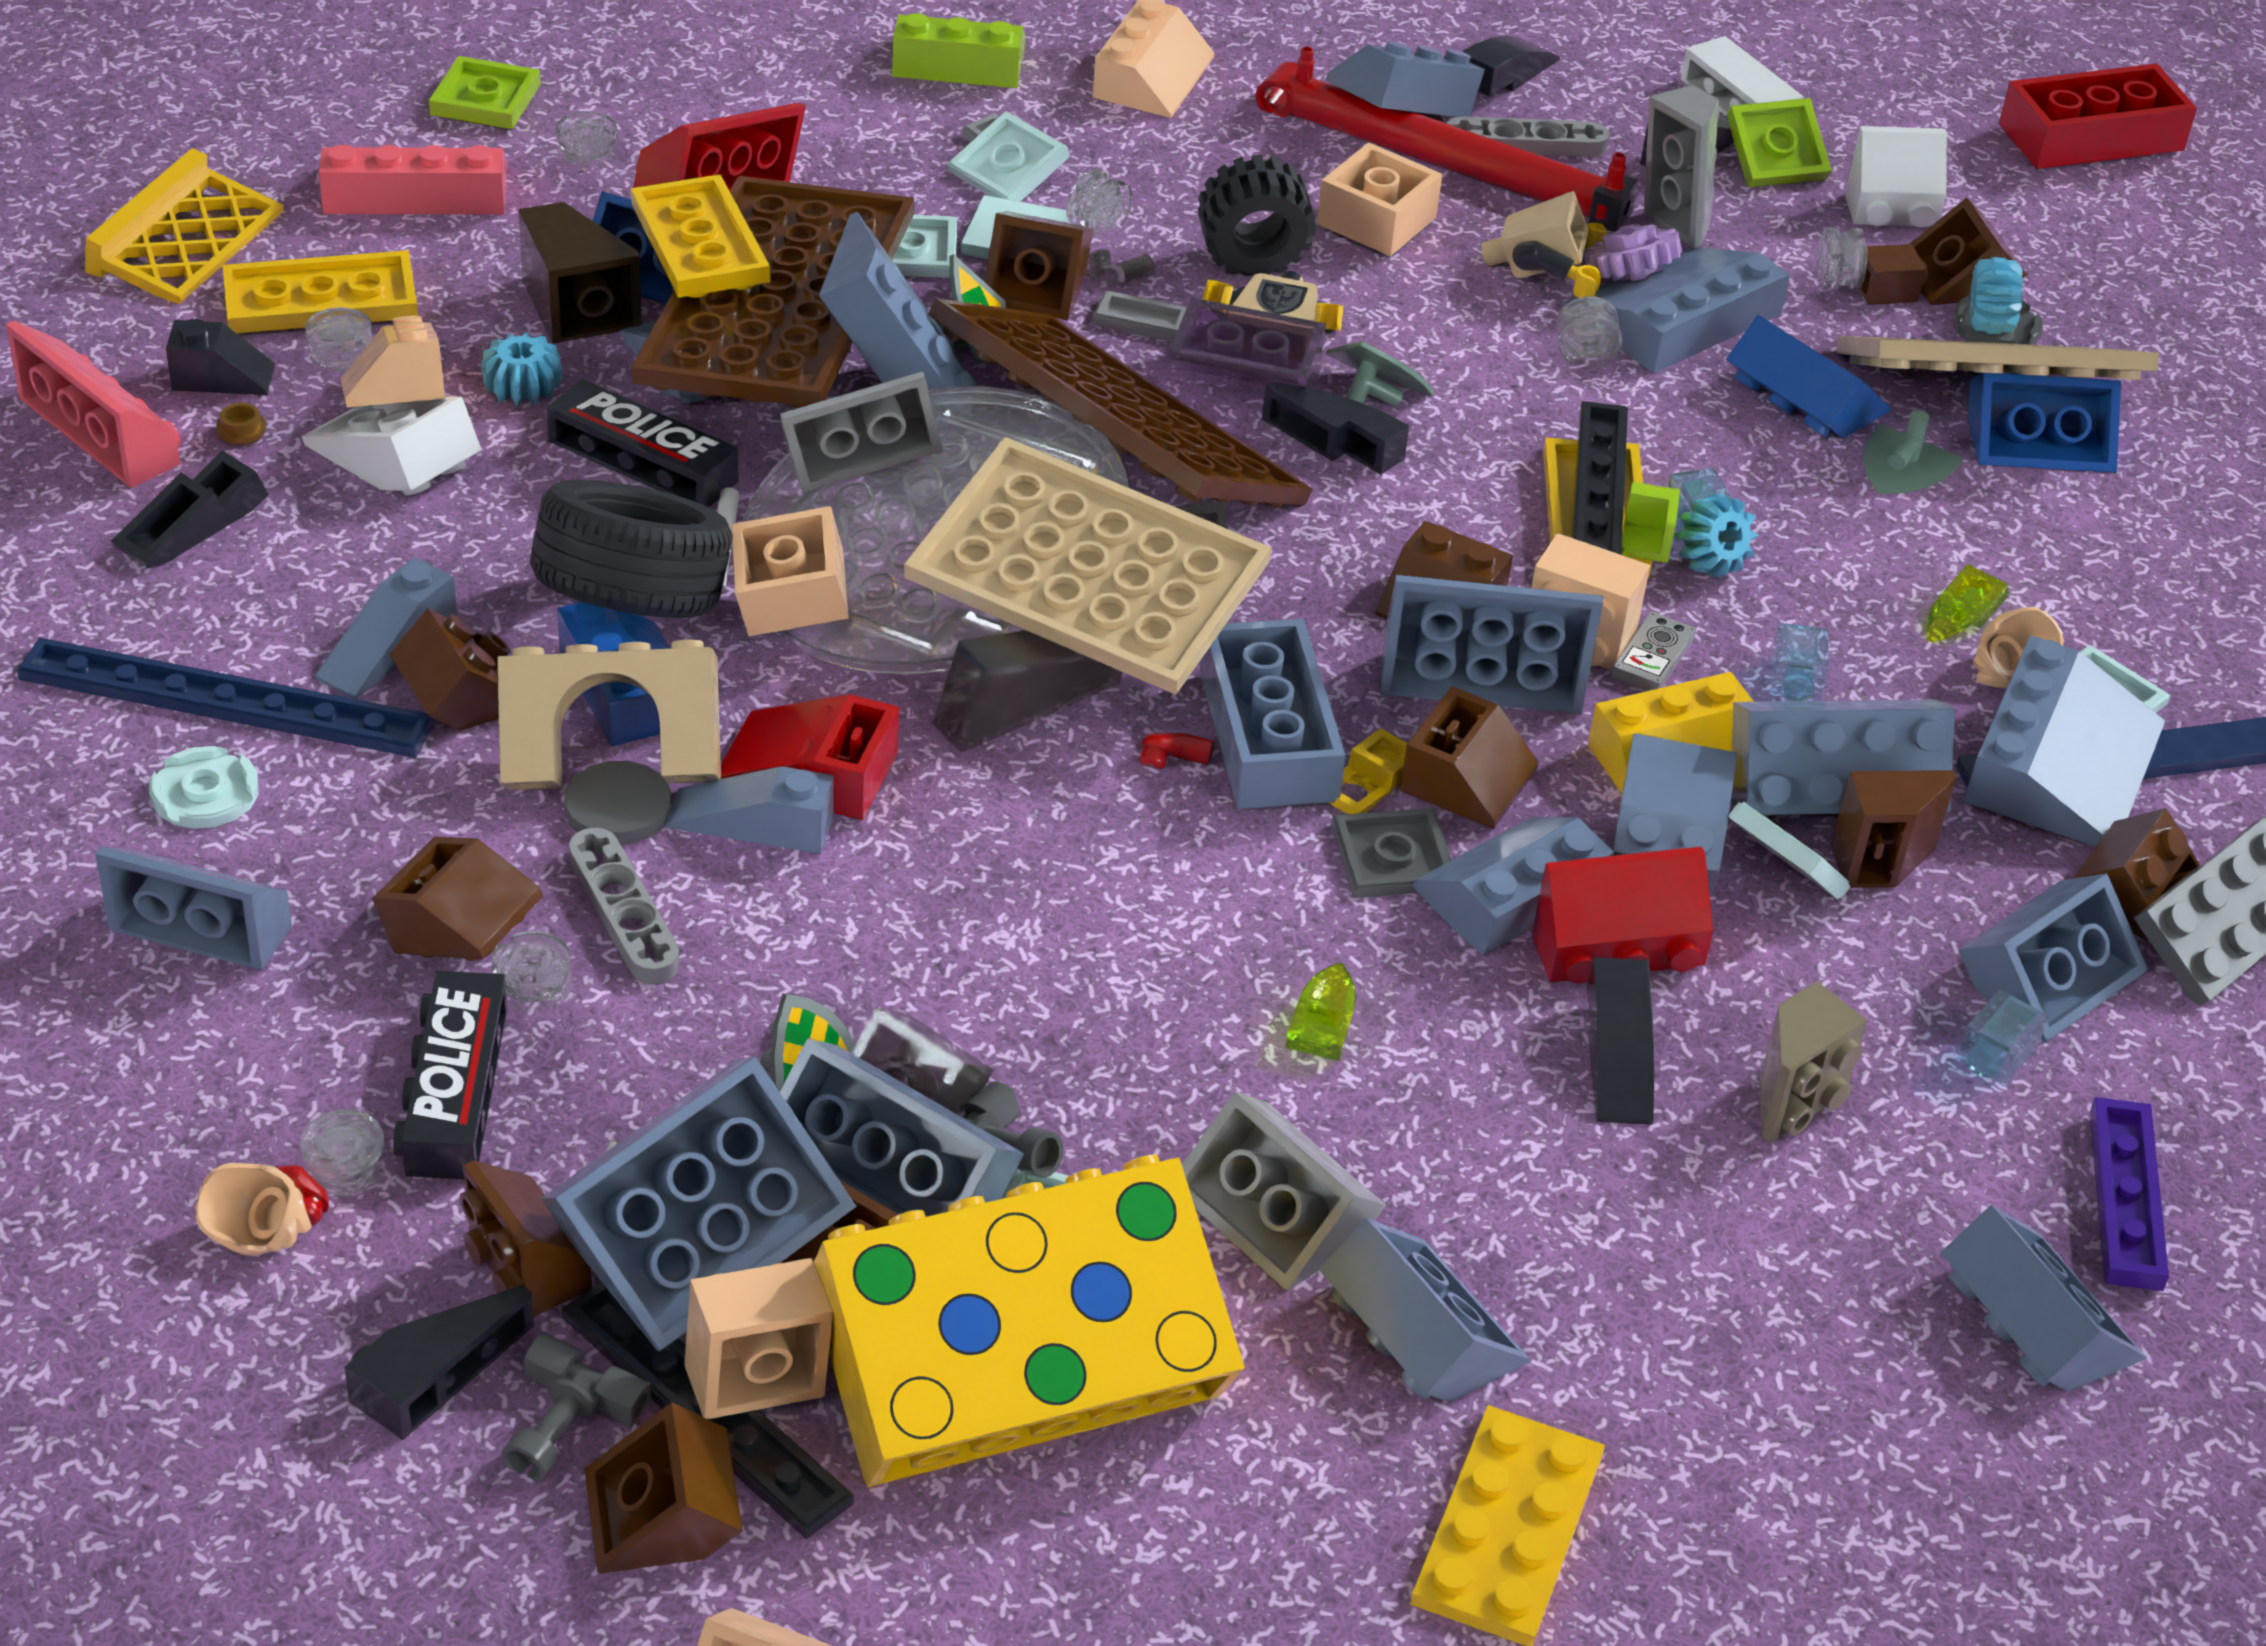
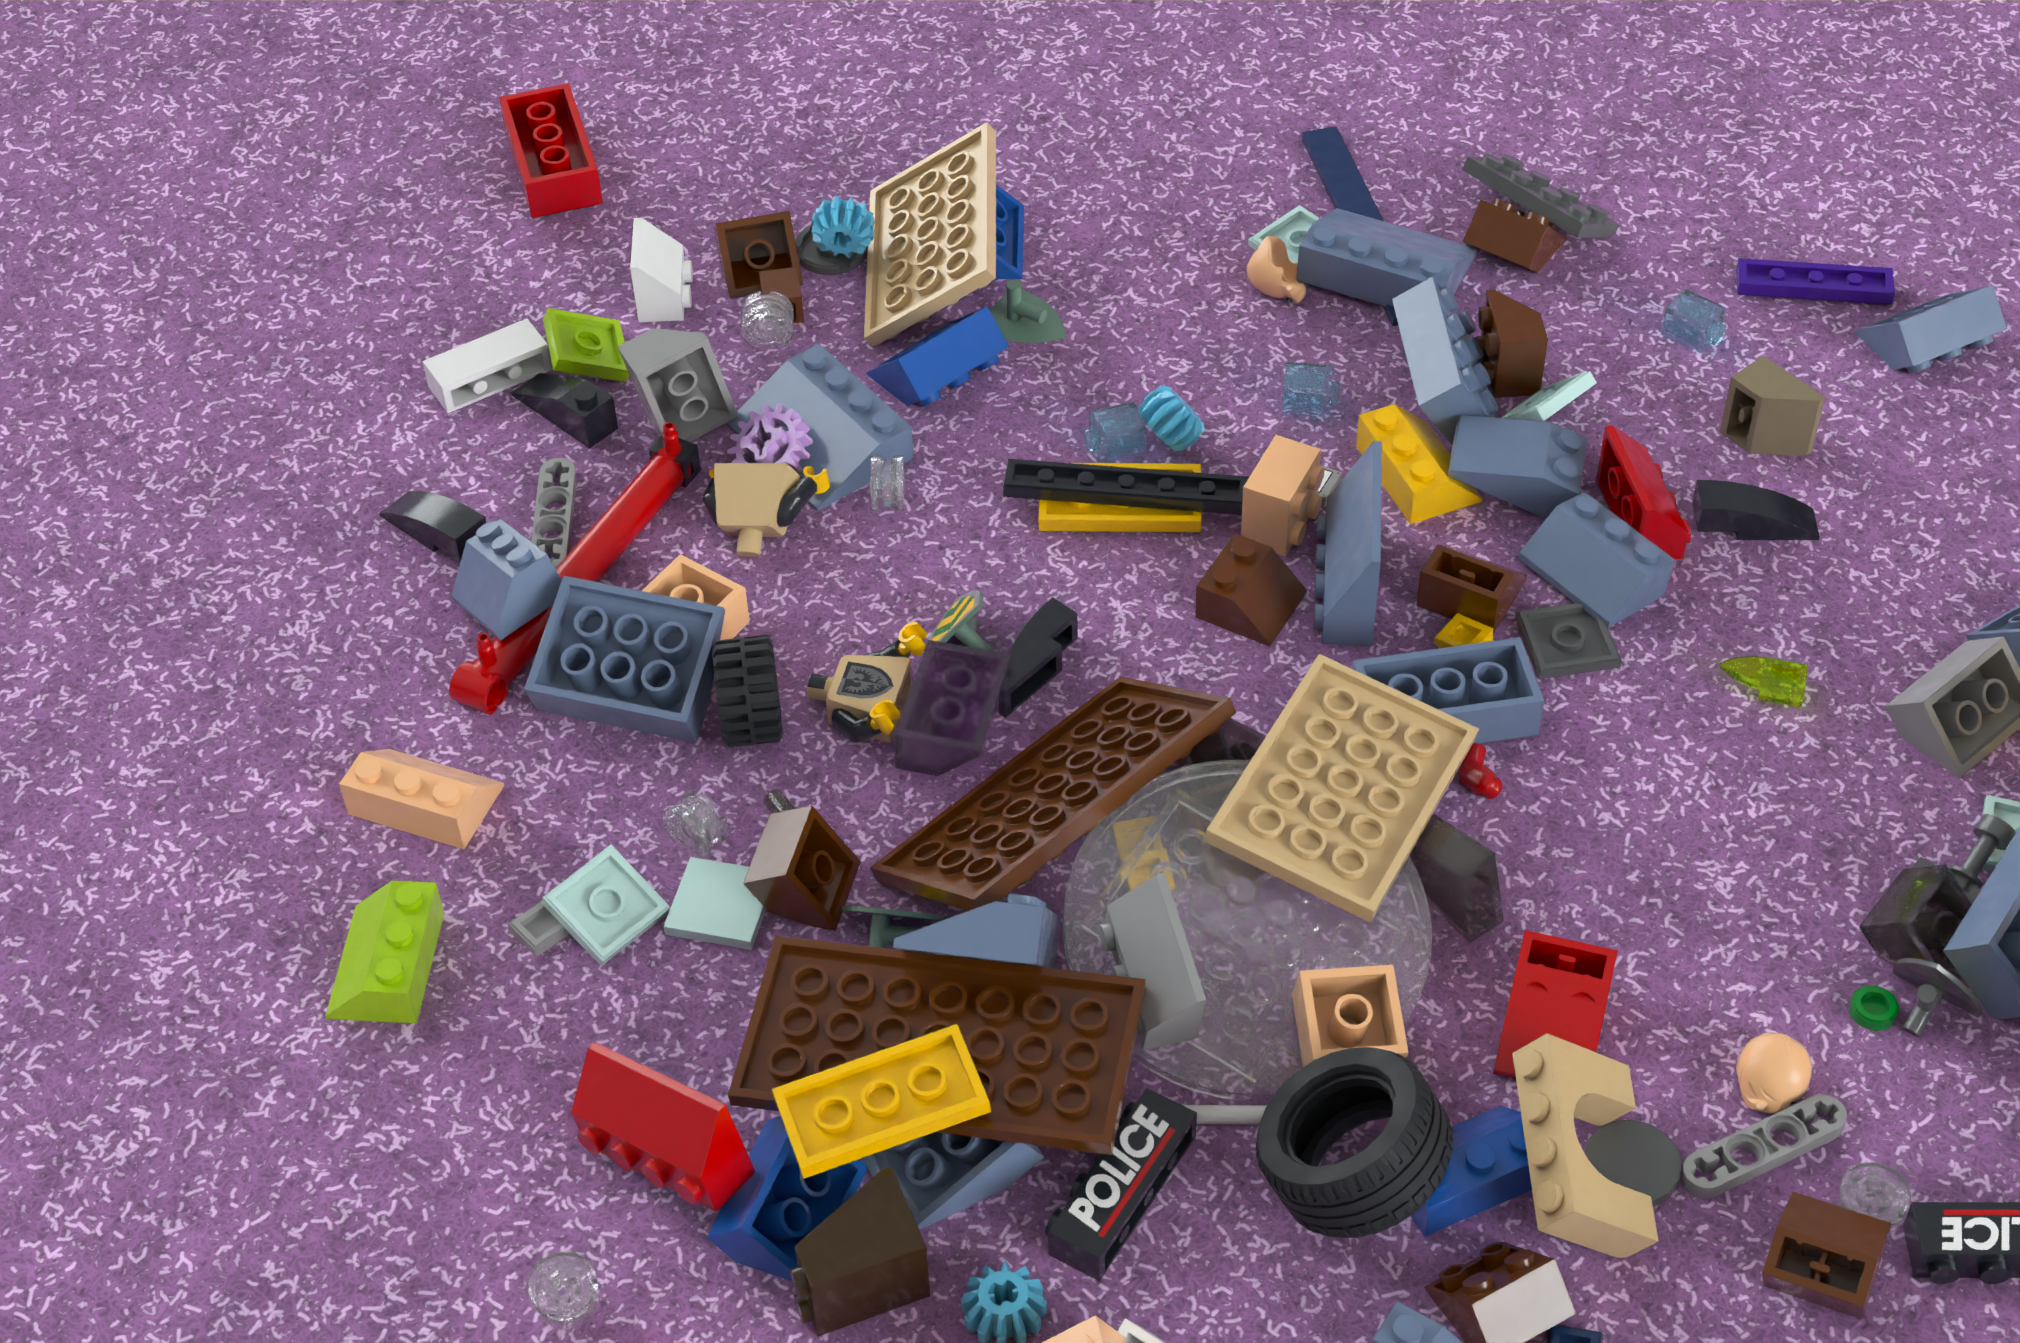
camera: 85 degrees left, 5 degrees up
(721, 925) = (1773, 1072): none -> light nougat hair
(762, 807) = (1633, 1037): sand blue slope -> none
(927, 246) = (729, 986): light aqua tile -> none
(1138, 315) = (859, 801): light grey tile -> none
(1304, 127) = (627, 659): none -> sand blue slope
(1650, 522) = (1173, 446): lime panel -> none
(1965, 602) = (1214, 295): clear neon green plate -> none
(2059, 952) = (1597, 290): sand blue slope -> none

